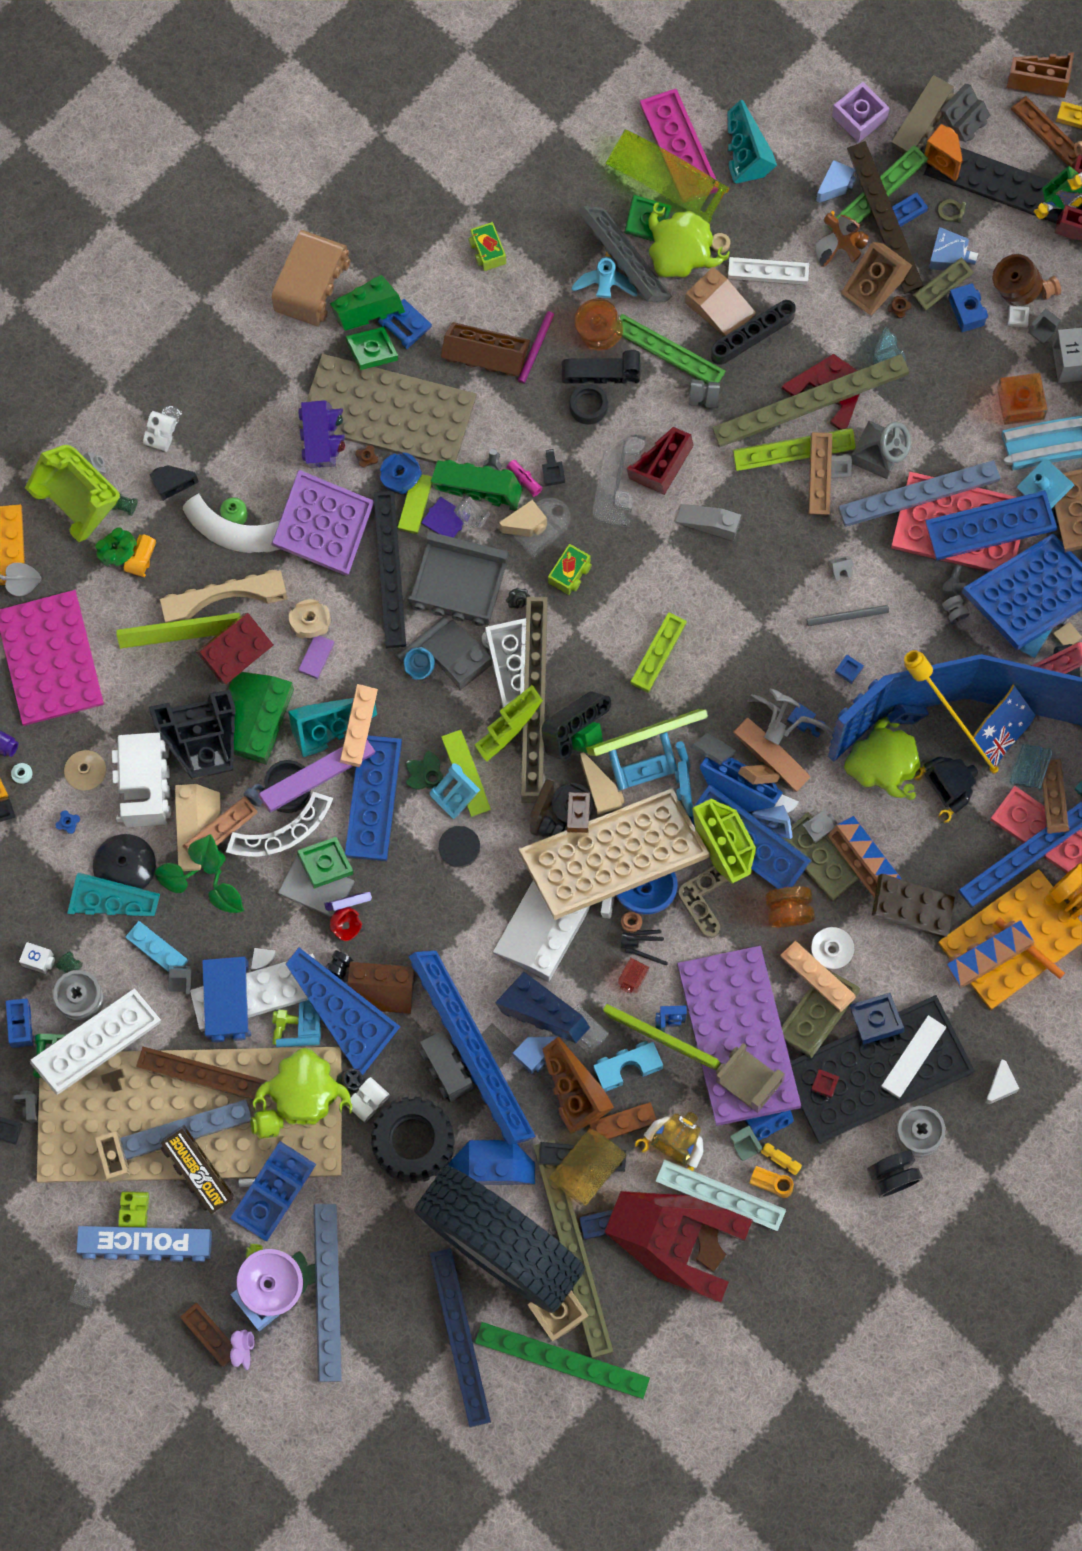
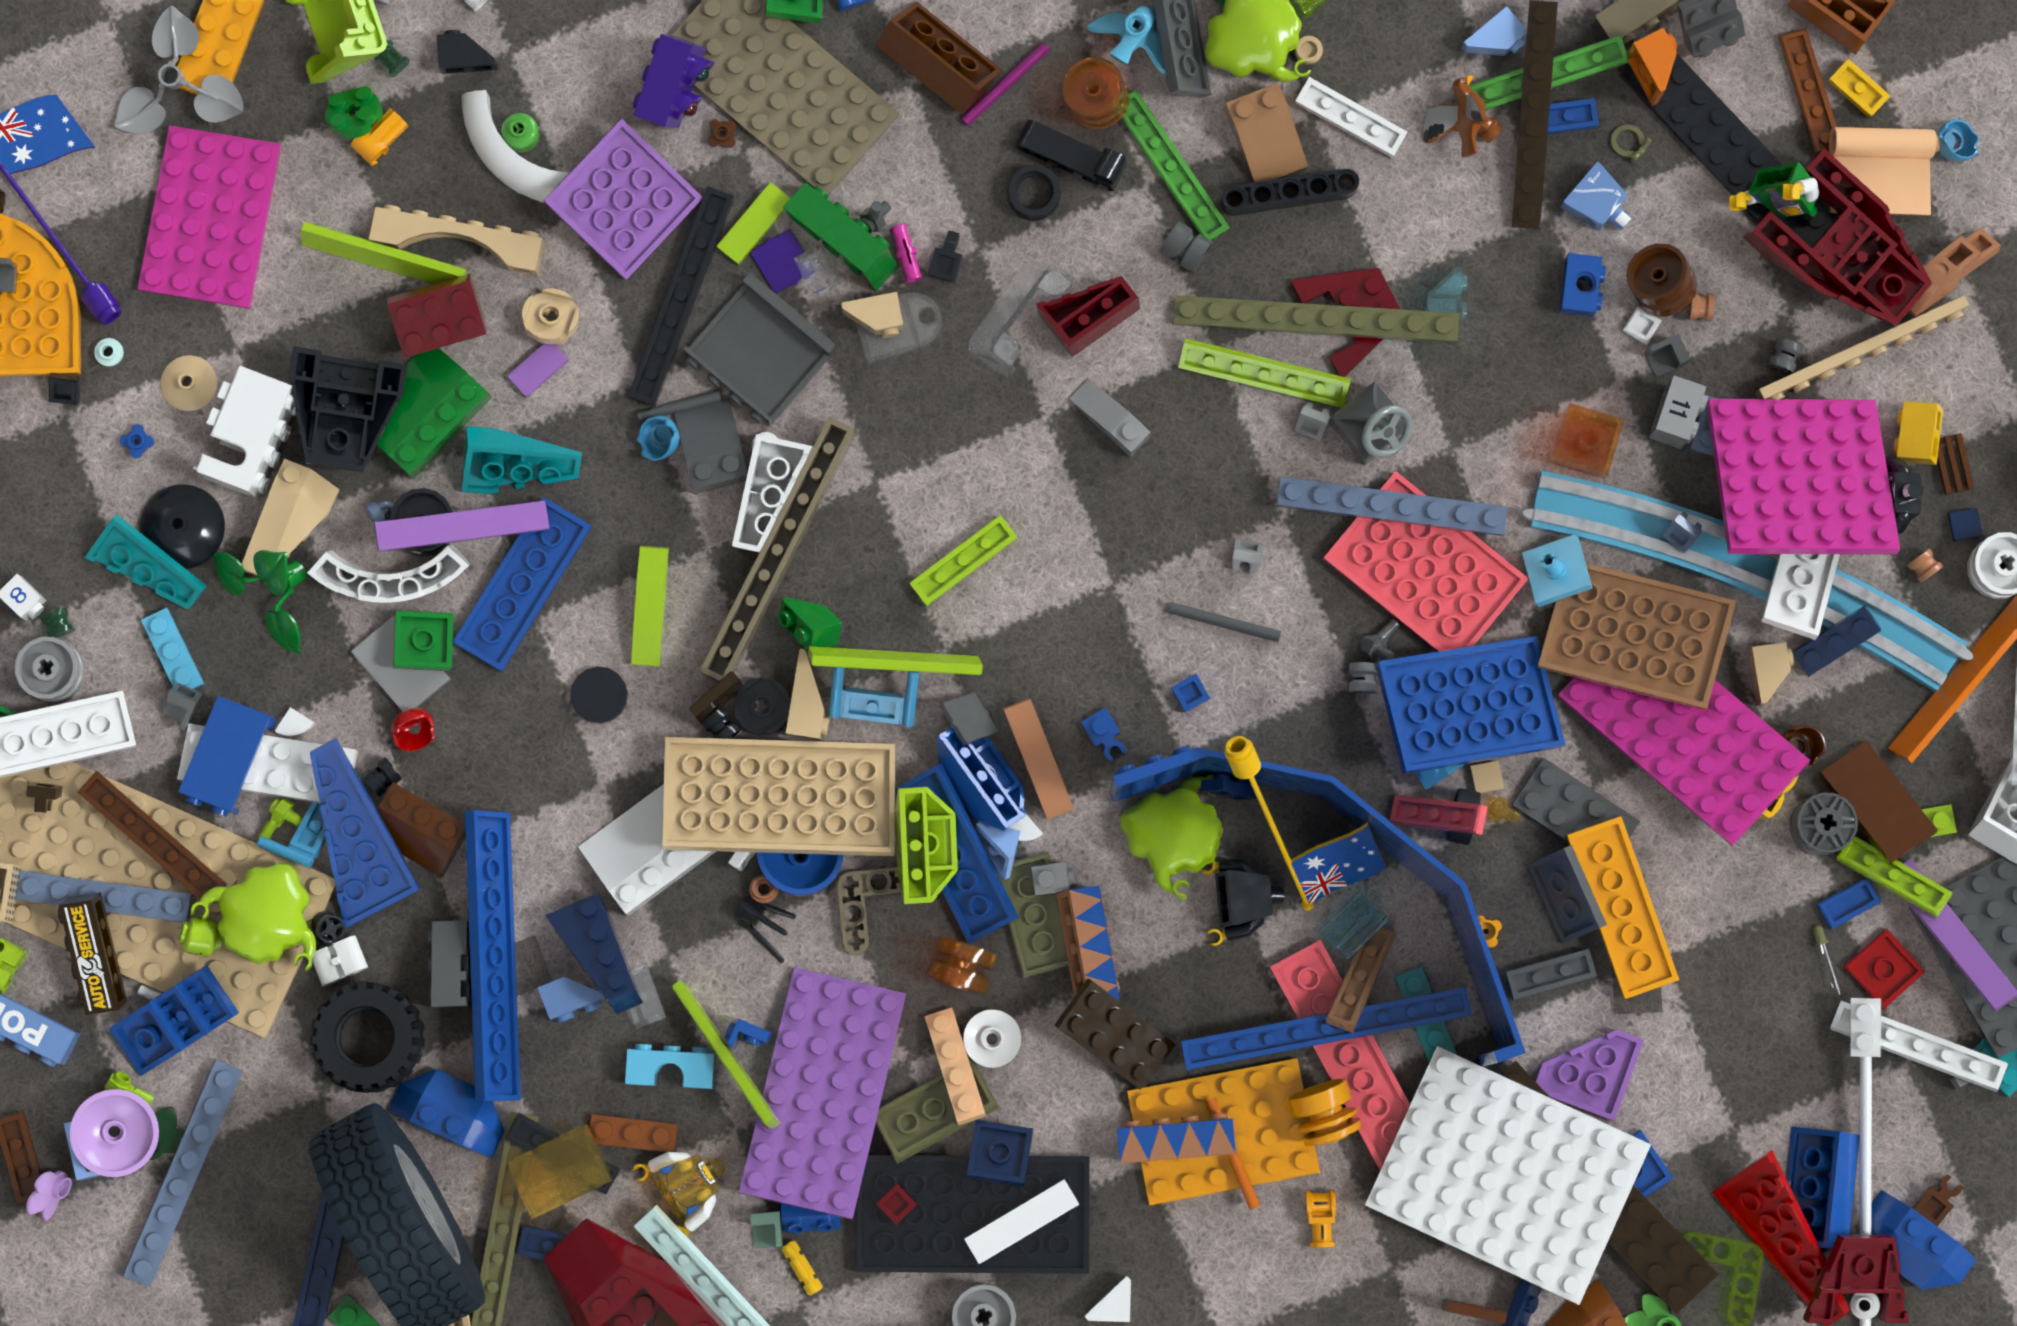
camera: 25 degrees right, 10 degrees up
(226, 822) = (320, 536): nougat tile -> none
(348, 901) = (428, 703): tile -> none
(358, 725) = (542, 487): light nougat plate -> none
(399, 462) = (760, 188): blue plate -> none
(422, 770) = (601, 576): dark green plate -> none
(459, 796) = (626, 633): medium azure plate -> none
(506, 727) = (731, 570): lime slope -> none
(517, 598) = (821, 408): pearl dark grey plant -> none
(569, 570) = (903, 402): brick -> none
(570, 720) = (809, 602): black beam -> none
(578, 812) = (760, 724): plate -> none
(578, 1092) = (593, 1074): dark orange wedge -> none
(633, 976) = (731, 959): clear red brick -> none
(683, 777) = (913, 739): dark azure plate -> none
(748, 1078) = (804, 1156): dark tan panel -> none
(759, 774) = (1007, 779): medium nougat tile -> none
(769, 1180) = (773, 1289): light orange piece -> none
(776, 728) = (1056, 732): light grey plant -> none
(820, 473) = (1279, 422): medium nougat plate -> none
(876, 277) = (1482, 192): medium nougat slope -> none
(899, 301) = (1498, 235): reddish brown plate -> none
(943, 283) = (1565, 239): olive tile -> none
(991, 525) = (1459, 592): blue plate -> none

